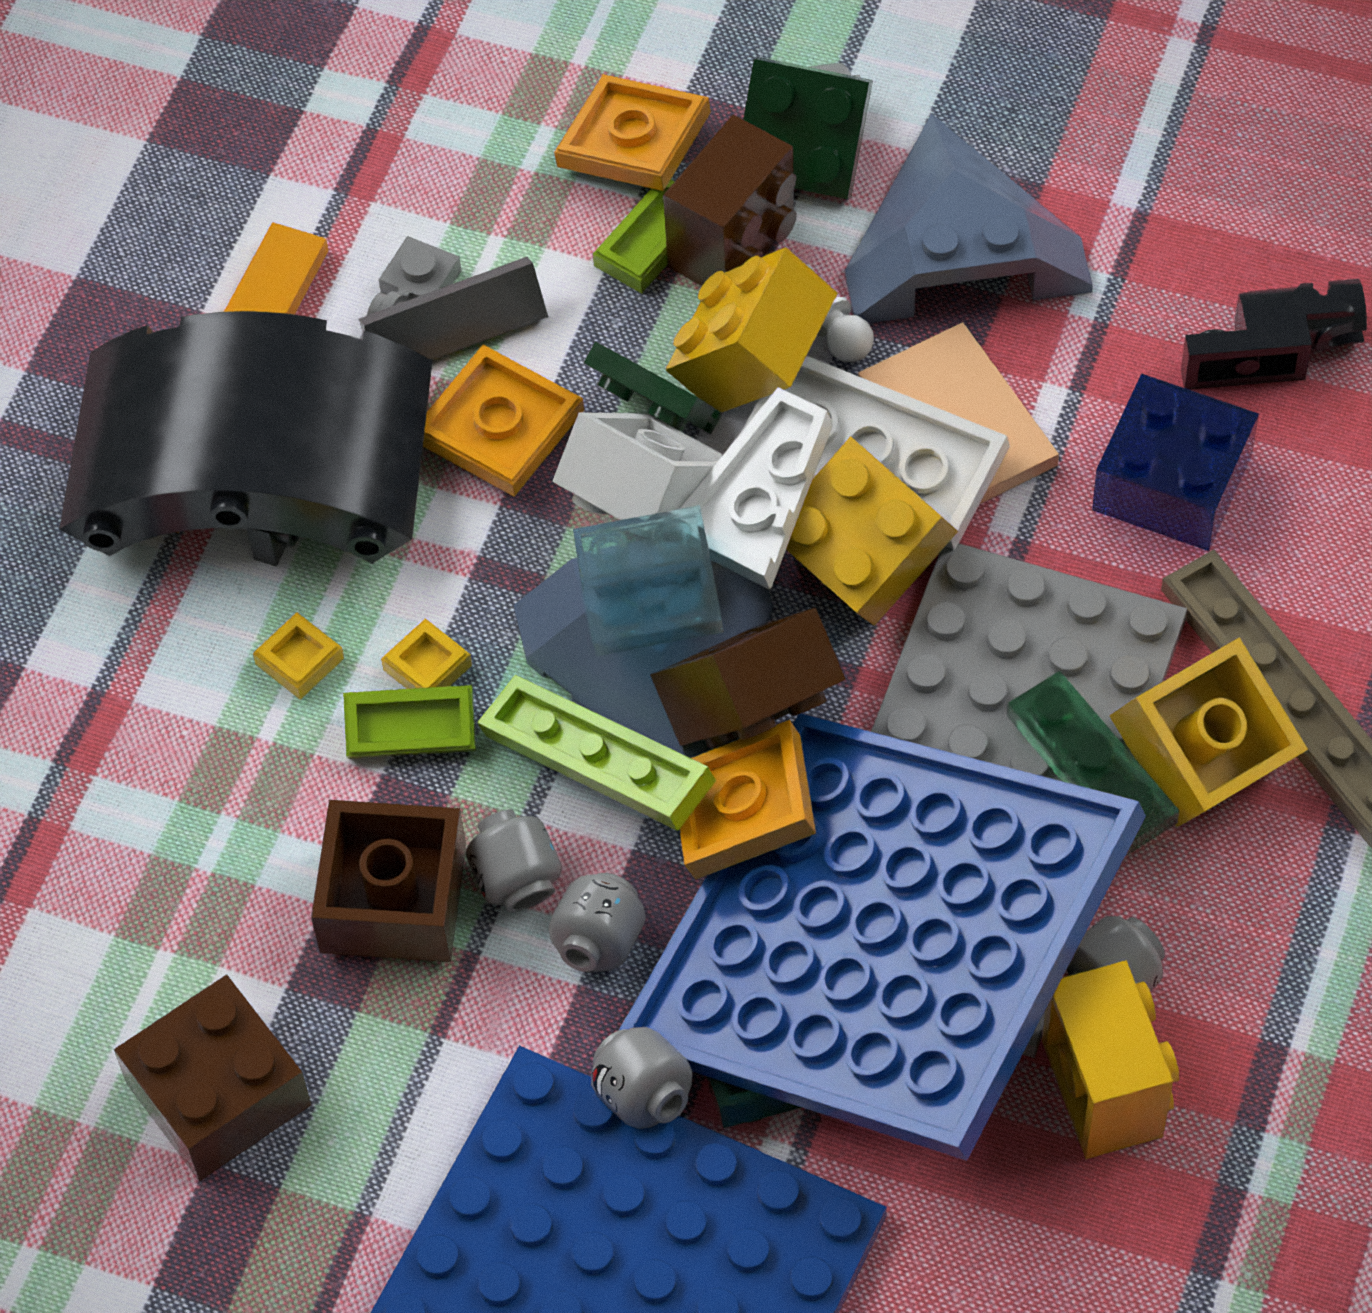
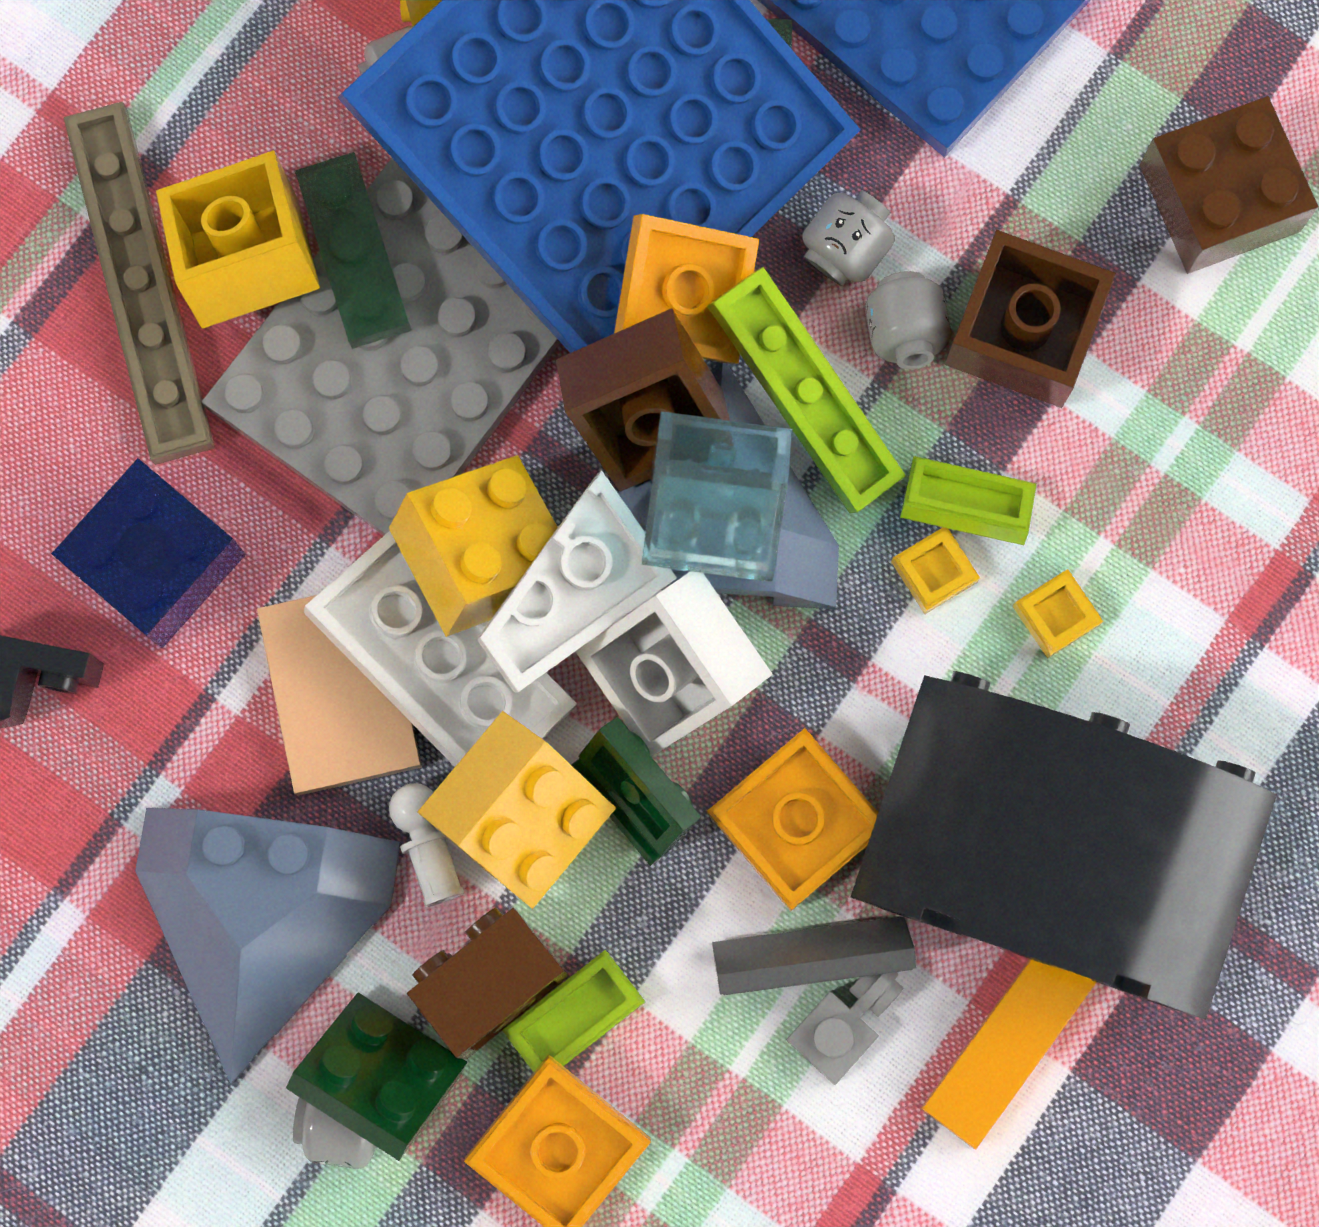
camera: 165 degrees left, 20 degrees up
(641, 1077) = (852, 61): light grey head -> none

